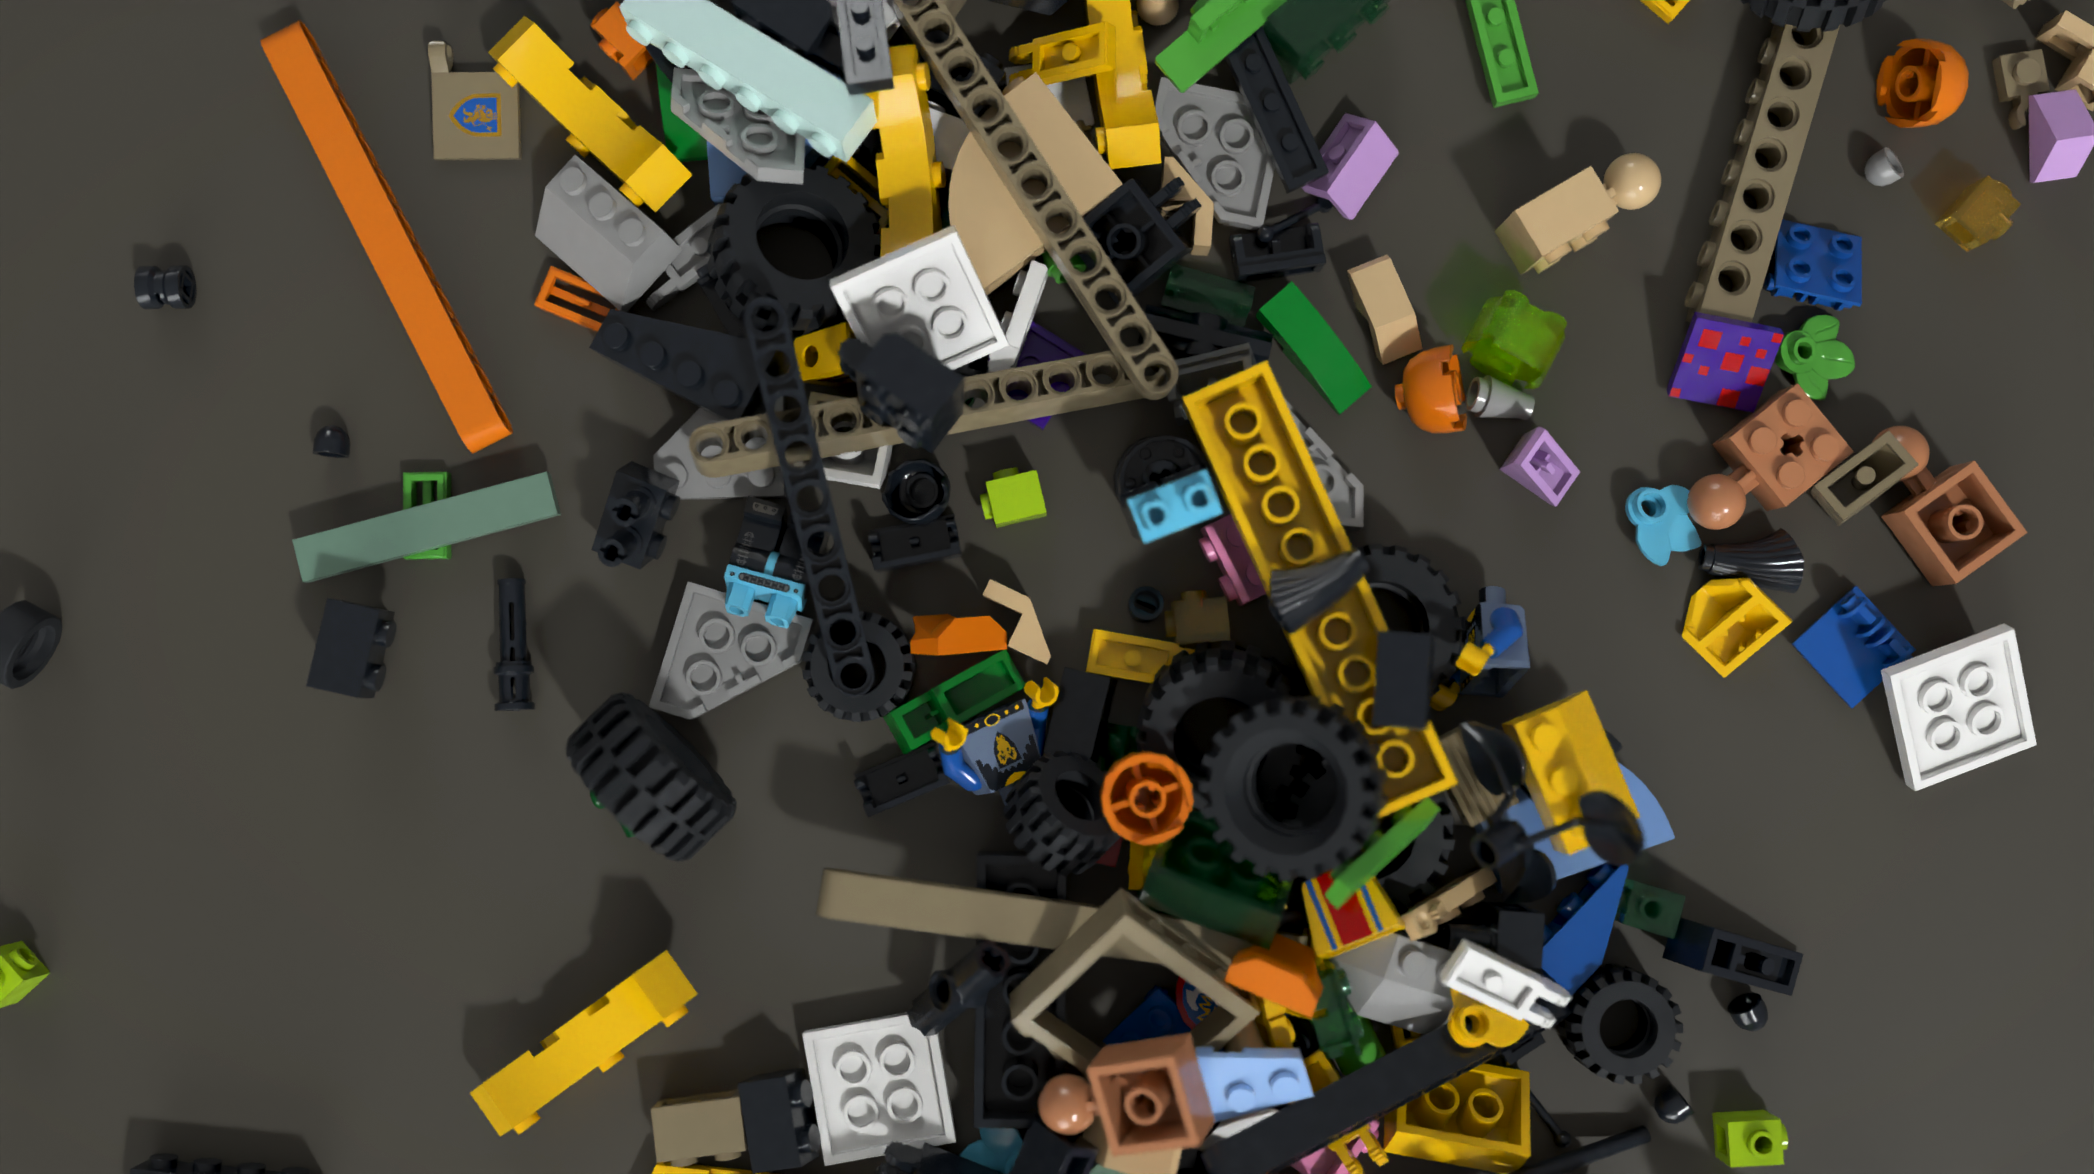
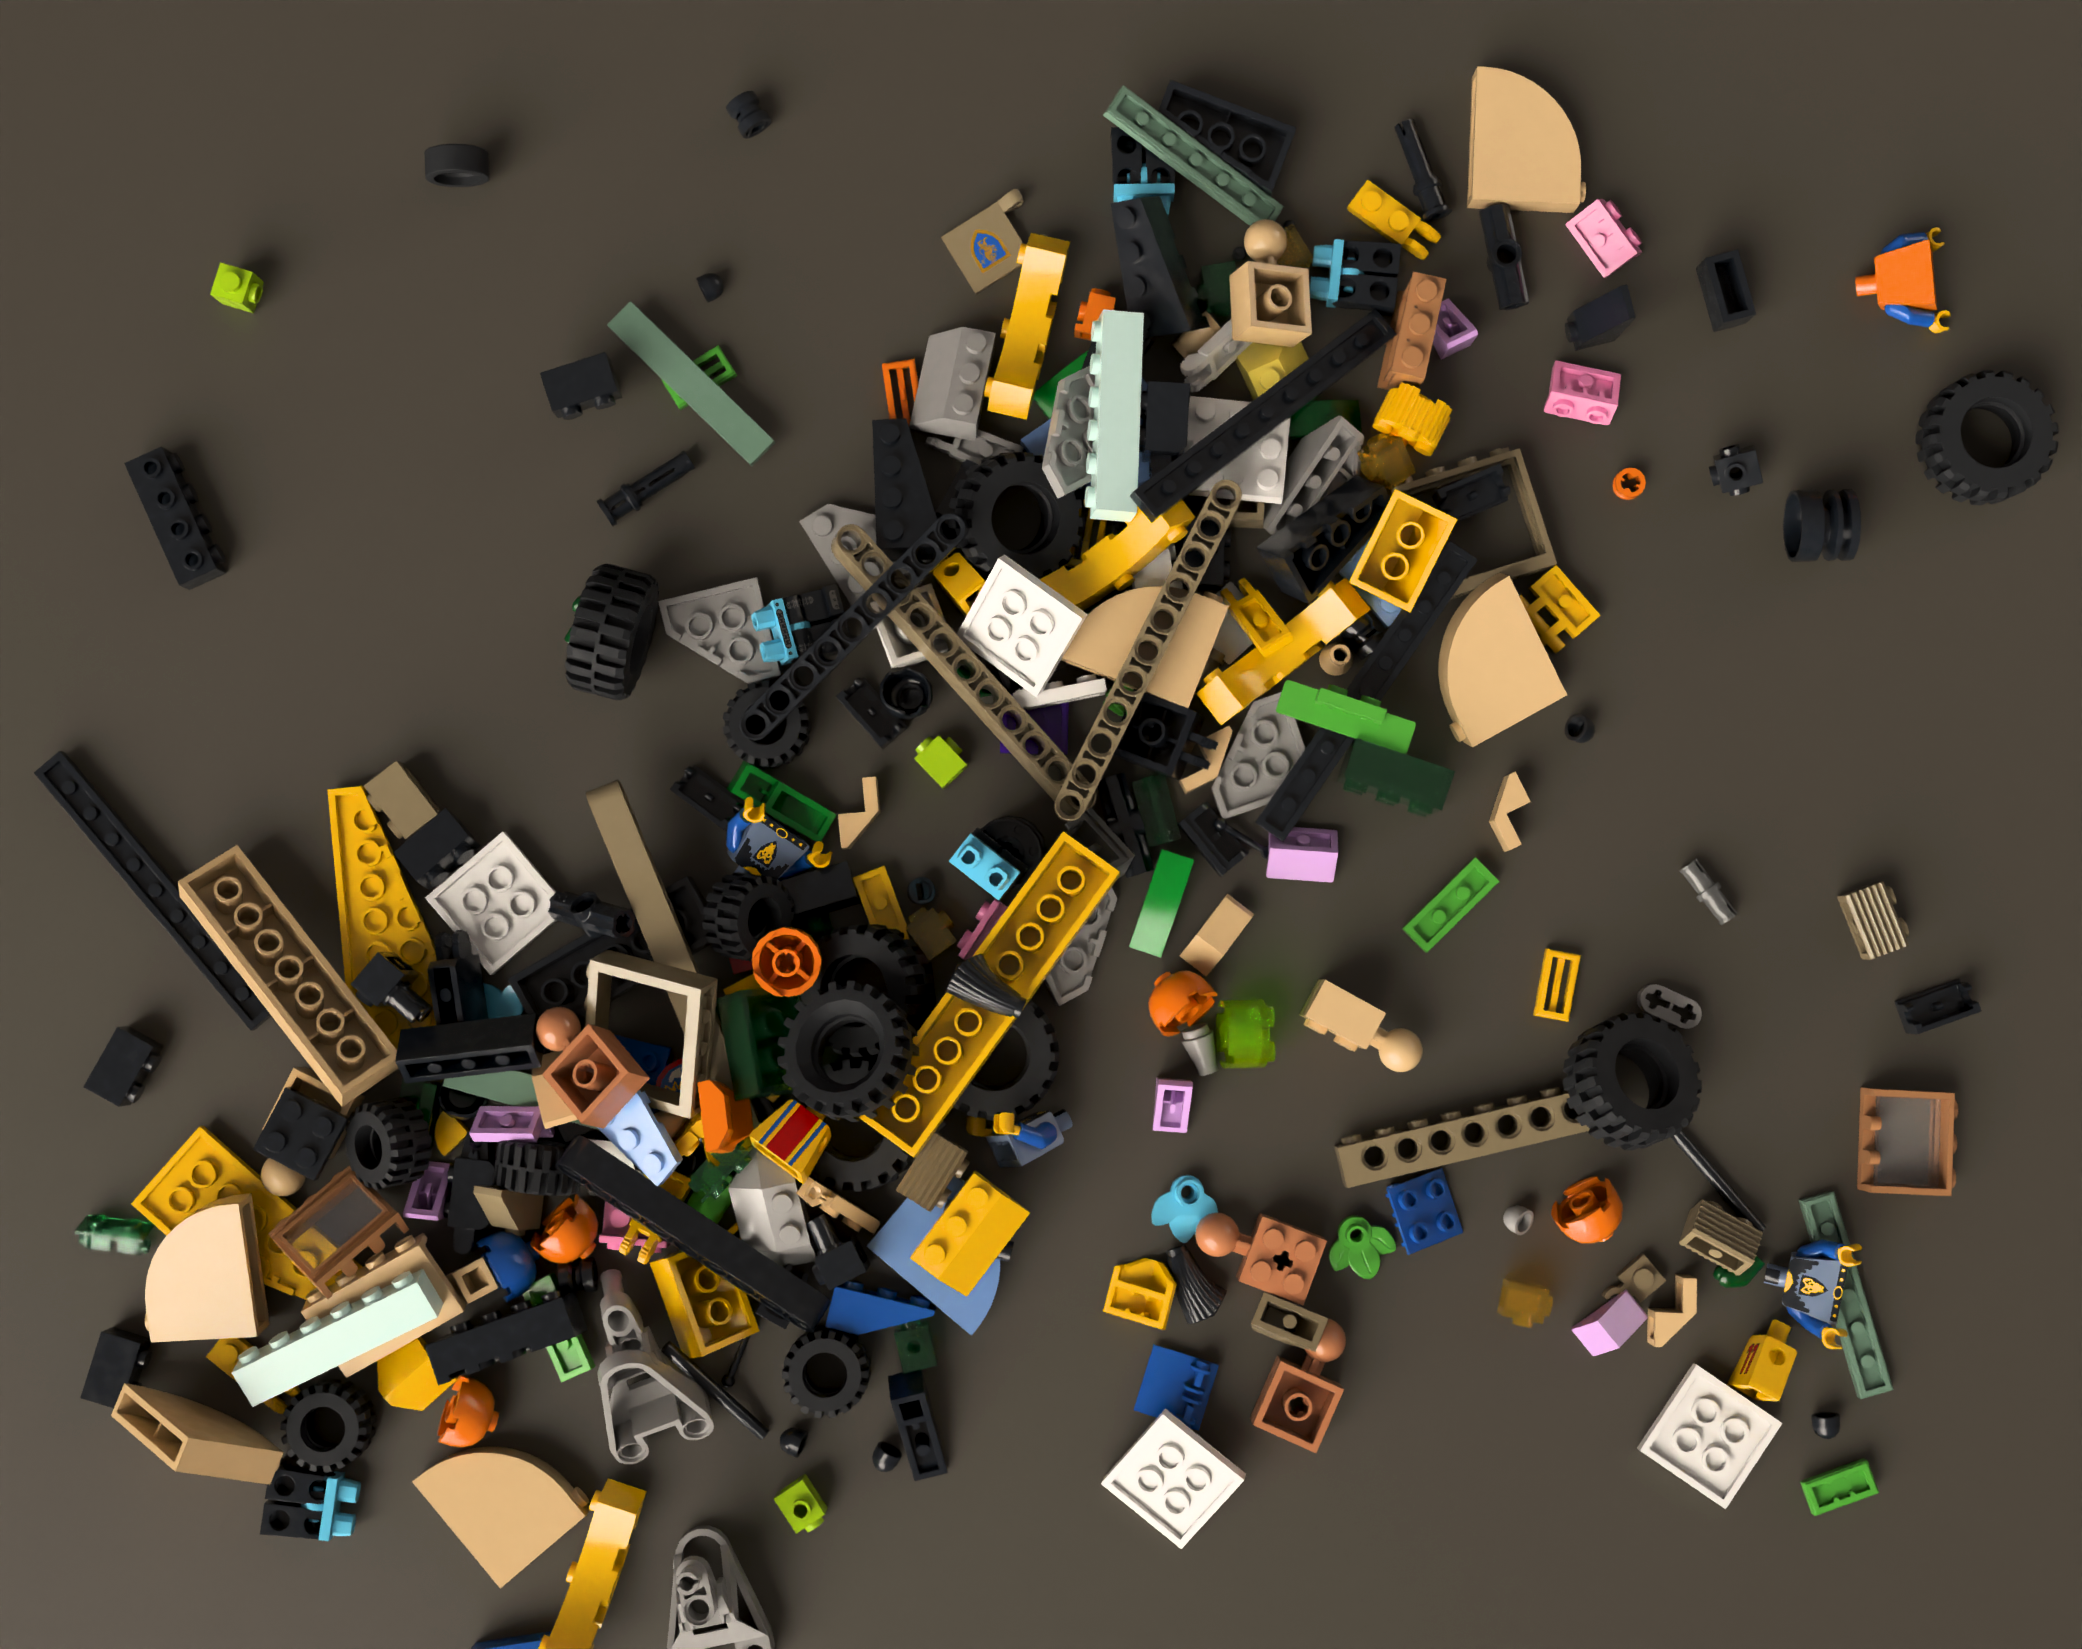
camera: 60 degrees right, 0 degrees up
(386, 236) = (869, 239): orange beam -> none
(583, 1043) = (413, 692): yellow brick -> none
(636, 516) = (778, 518): black brick -> none
(904, 388) = (960, 646): black hinge -> none
(951, 635) = (823, 773): orange slope -> none
(1380, 850) = (841, 1134): bright green plate -> none
(1403, 680) = (958, 1082): black hinge -> none
(1487, 1023) = (783, 1270): yellow plate -> none
(1502, 984) = (802, 1269): white hinge -> none
(1525, 871) = (889, 1242): black plant -> none
(1724, 361) = (1315, 1185): dark purple tile -> none

